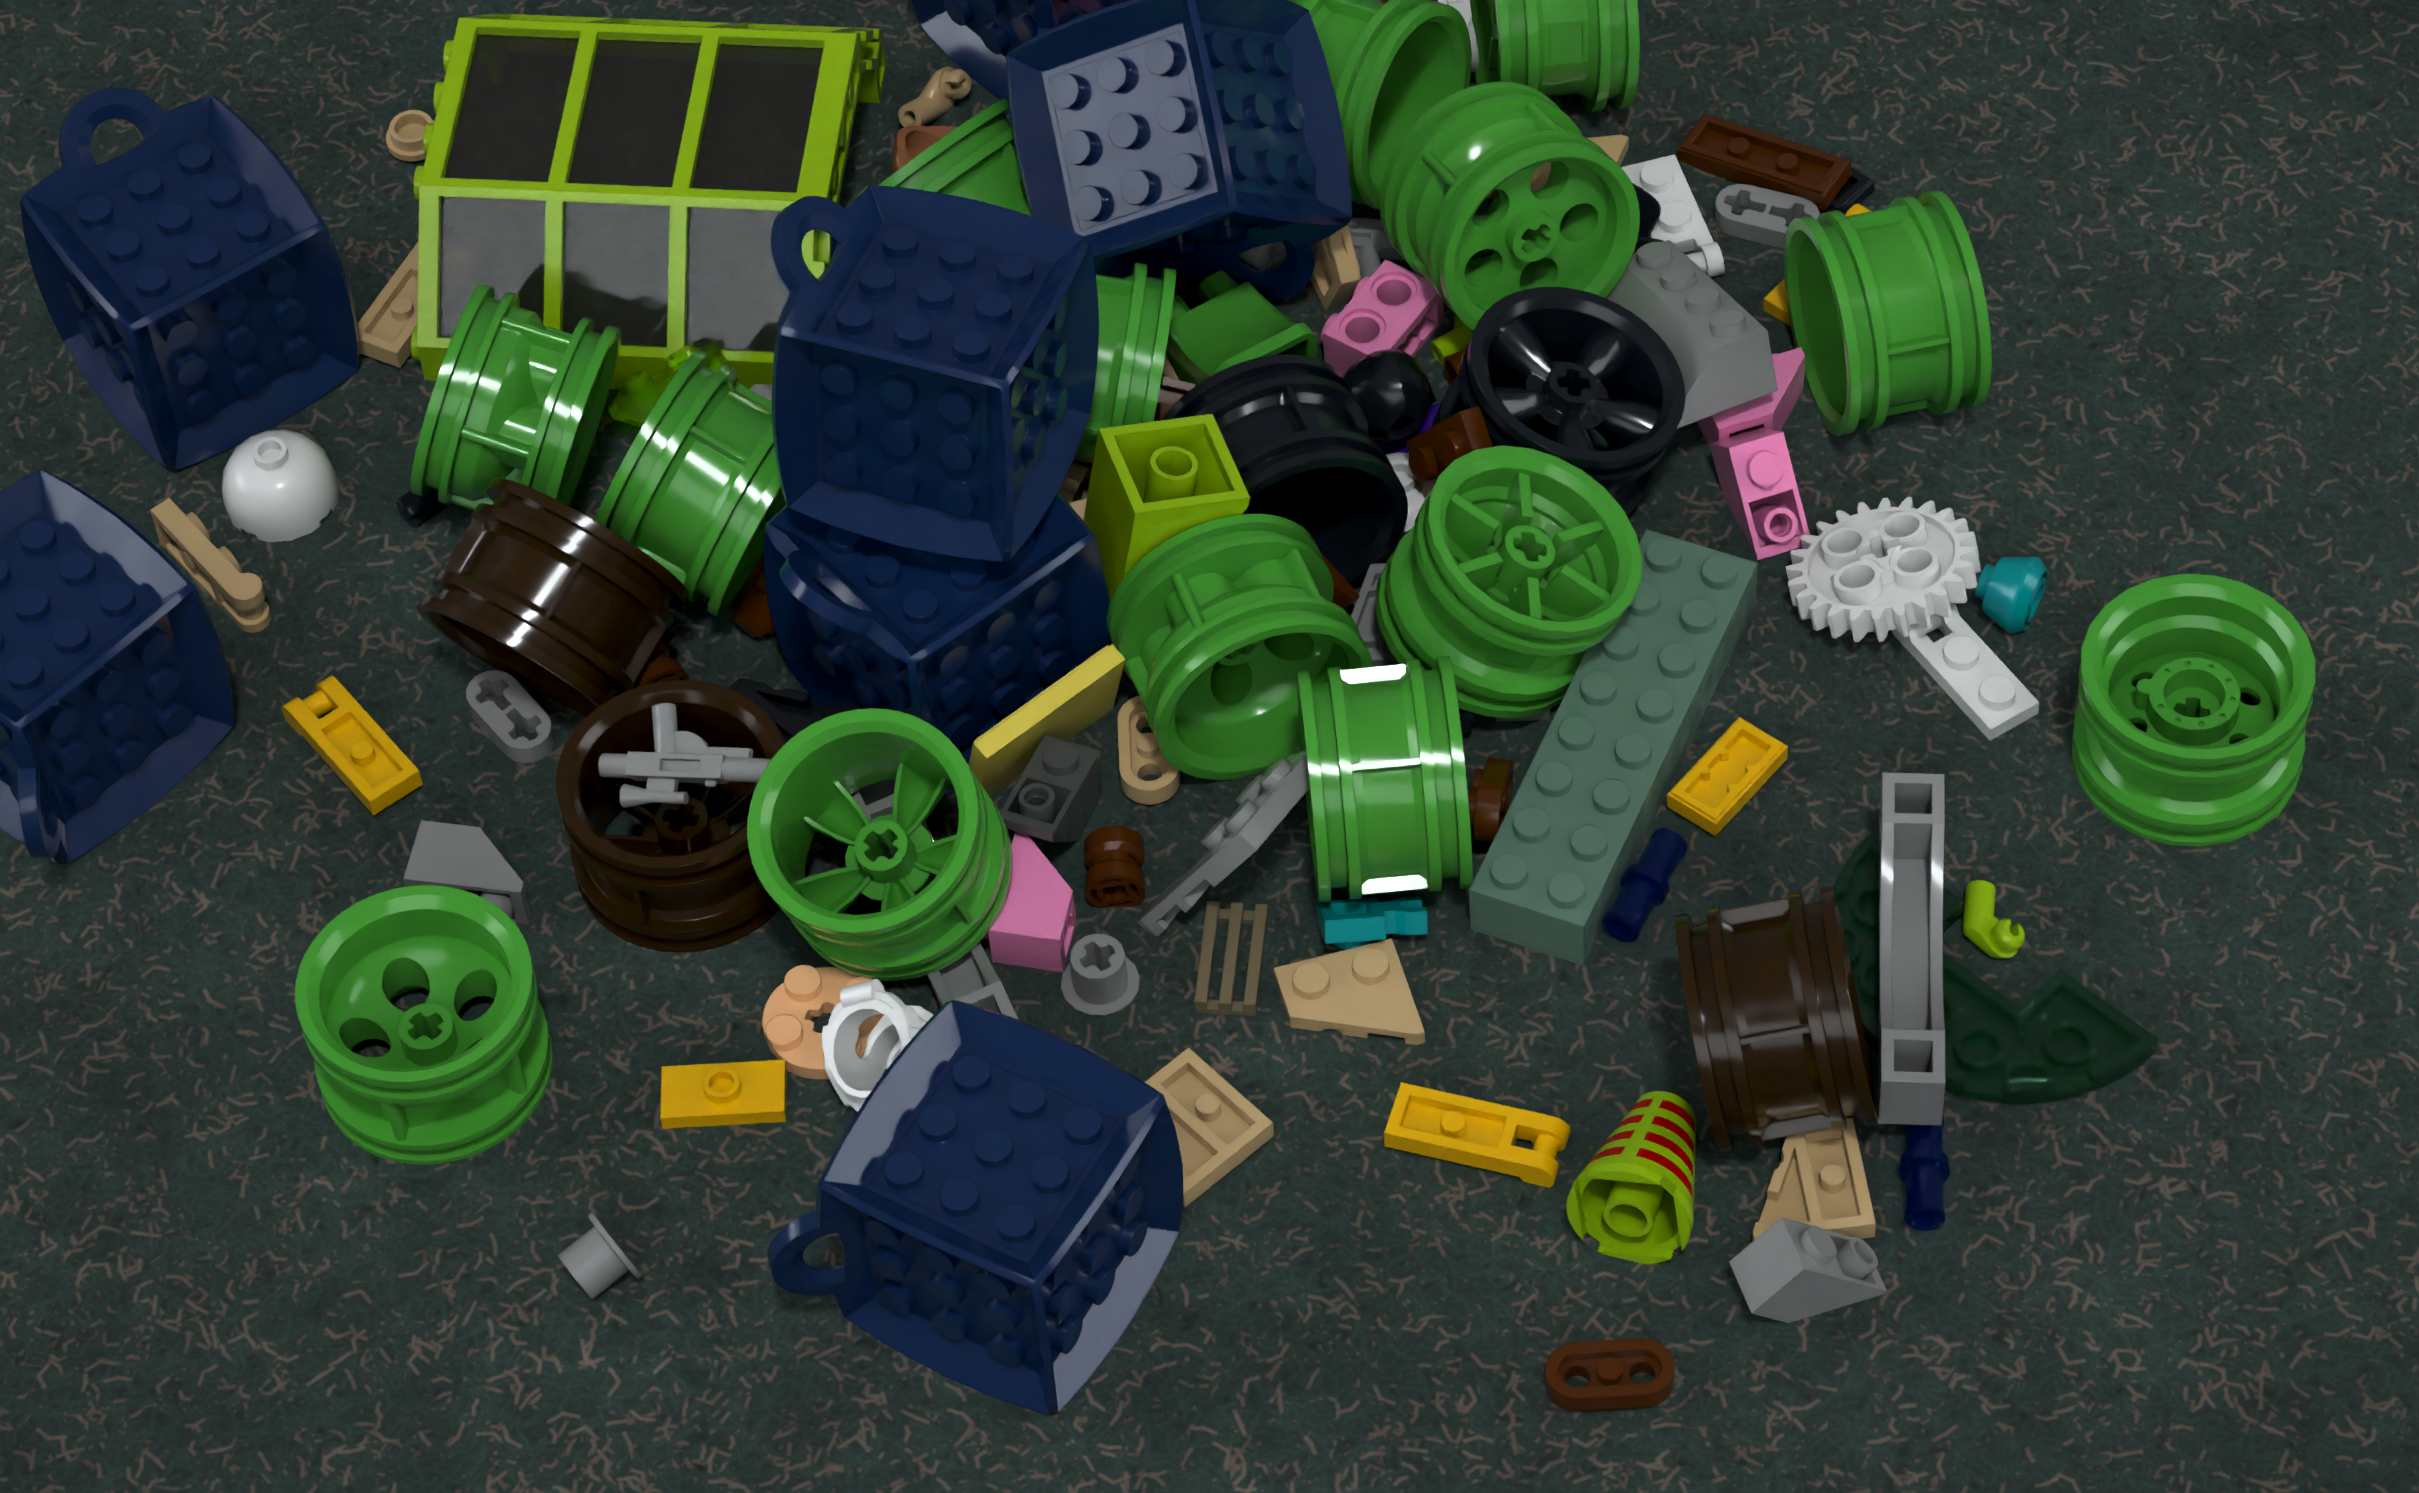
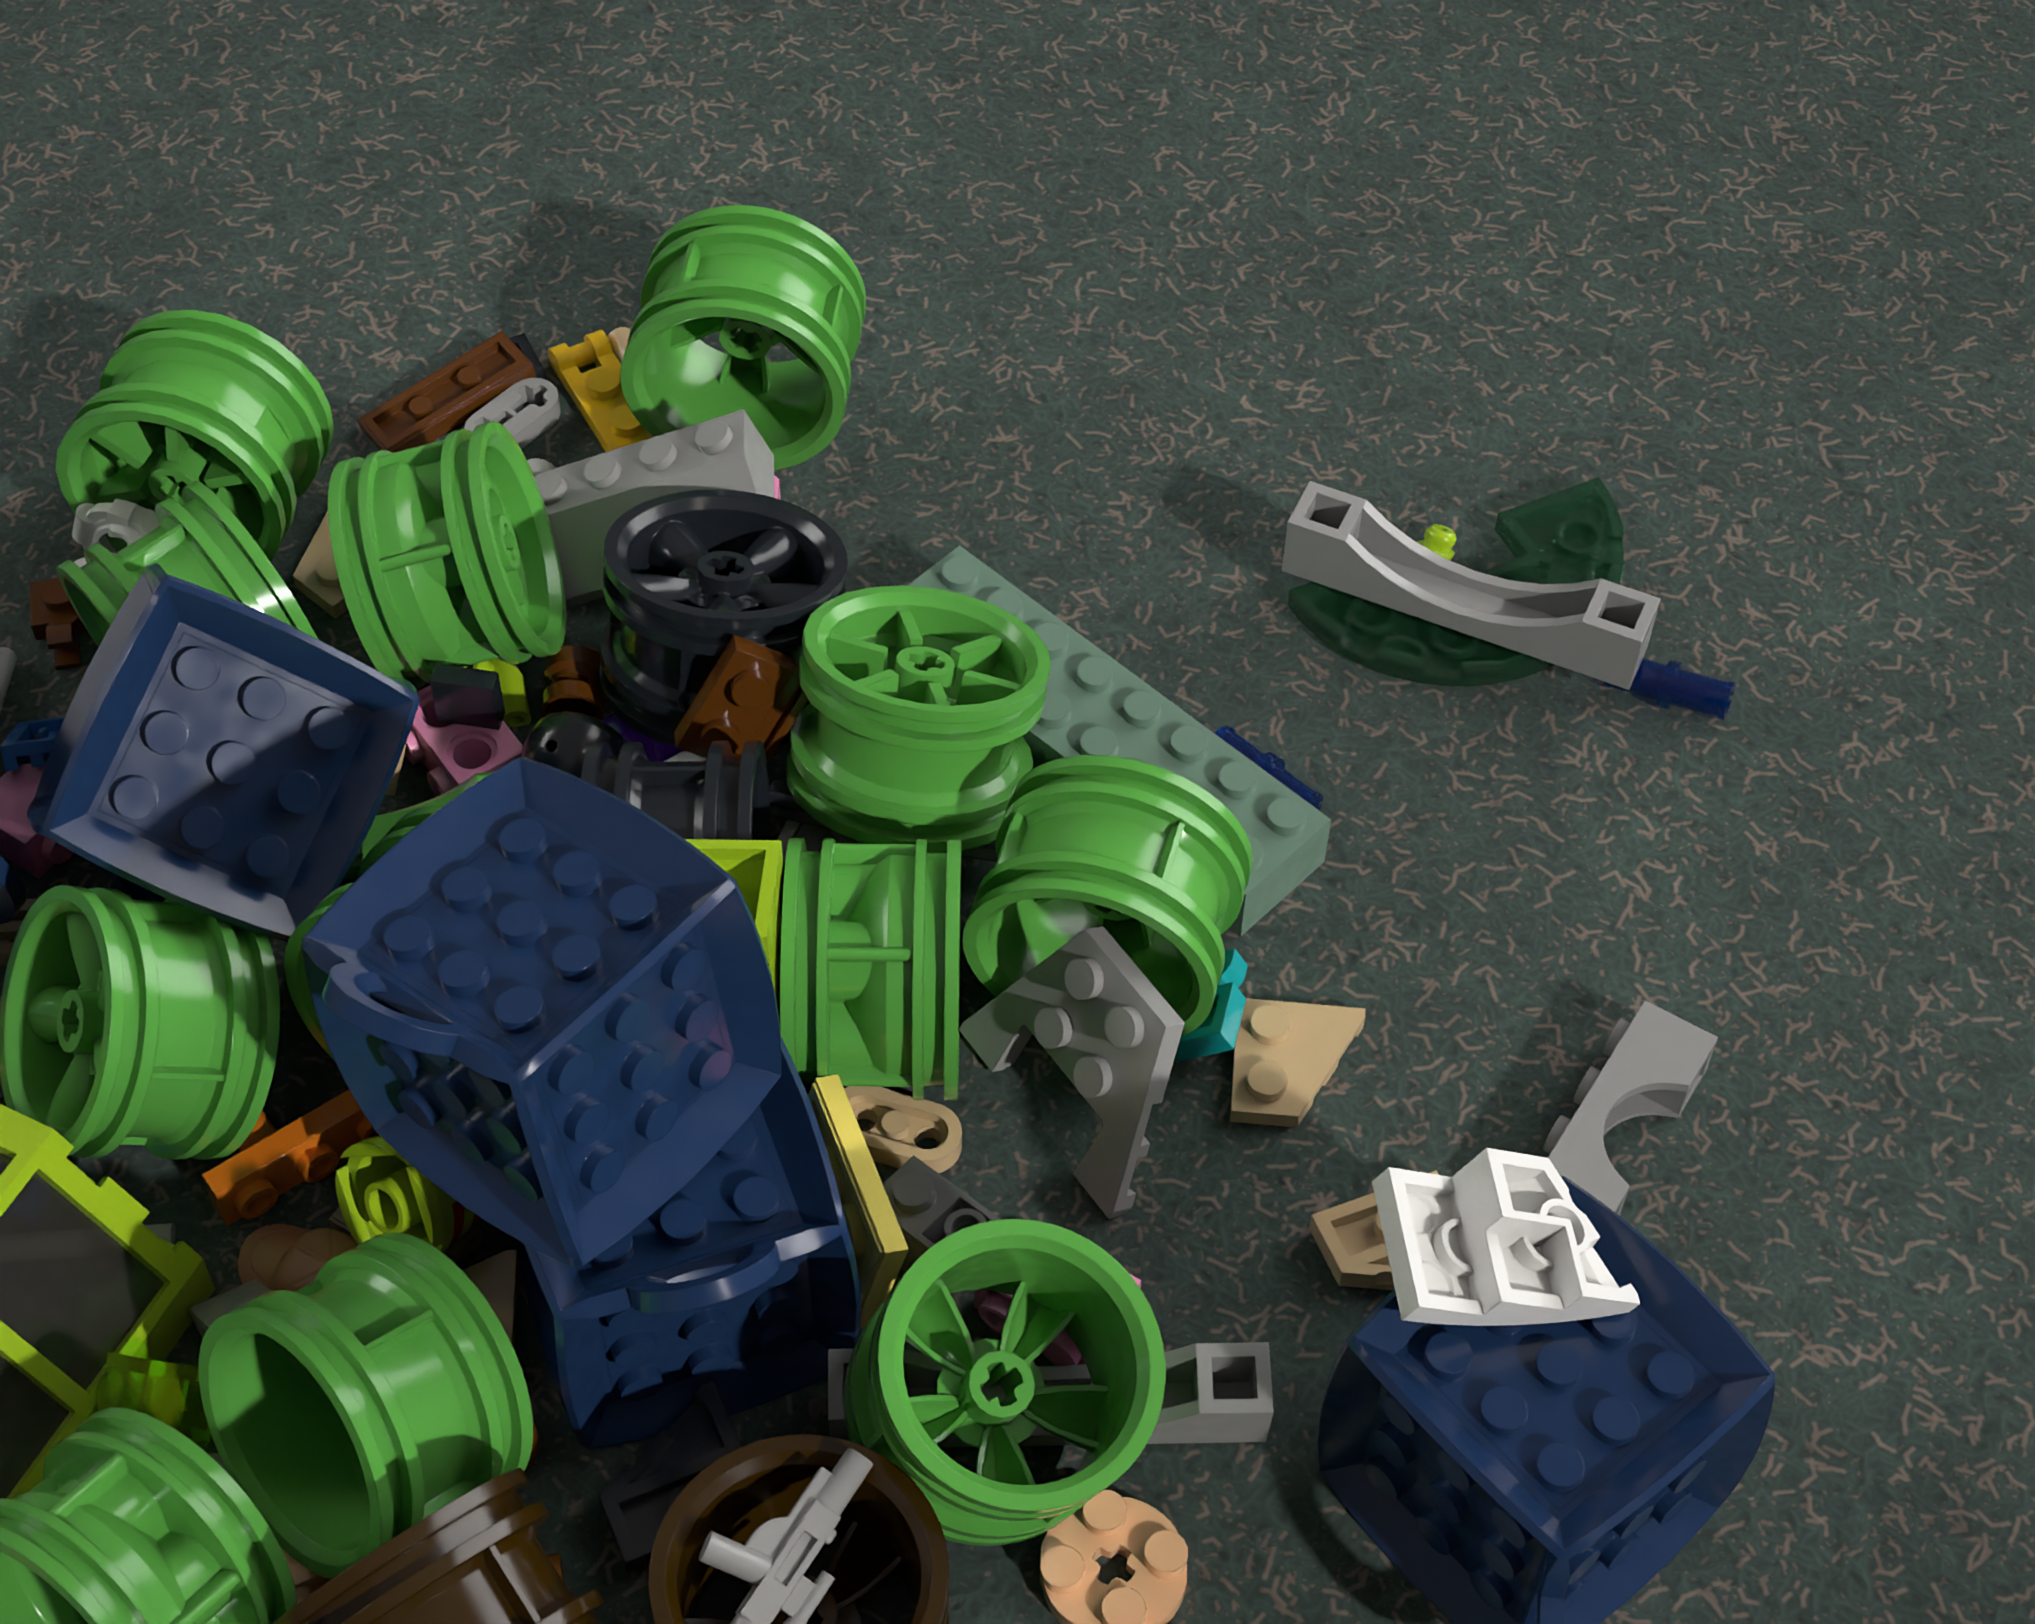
camera: 75 degrees left, 0 degrees up
(848, 1073) = (1227, 1479): white helmet -> none
(1056, 1055) = (1493, 1246): none -> white slope
(1099, 976) = (1171, 1273): light grey piece -> none
(1114, 865) = (1050, 1203): reddish brown wheel -> none
(1235, 917) = (1214, 1130): dark tan tile -> none
(1303, 1226) = (1649, 1072): none -> light grey arch
(1395, 293) = (467, 696): none -> black tile
(1476, 1133) = (1501, 1011): yellow plate -> none
(1609, 1370) = (1825, 999): reddish brown plate -> none
(1640, 1183) = (1623, 882): lime cone -> none
(1727, 776) = (1166, 665): yellow plate -> none
(1761, 490) = (870, 530): bright pink slope -> none
(1775, 1019) = (1544, 689): dark brown wheel -> none
(1805, 1271) = (1766, 805): light grey slope -> none
(1821, 1184) = (1665, 769): tan wing -> none
(1883, 569) = (1021, 475): white gear -> none
(1971, 674) = (1116, 468): white plate -> none
(2012, 591) = (1064, 399): teal cone -> none
(2165, 717) = (1286, 315): bright green wheel -> none

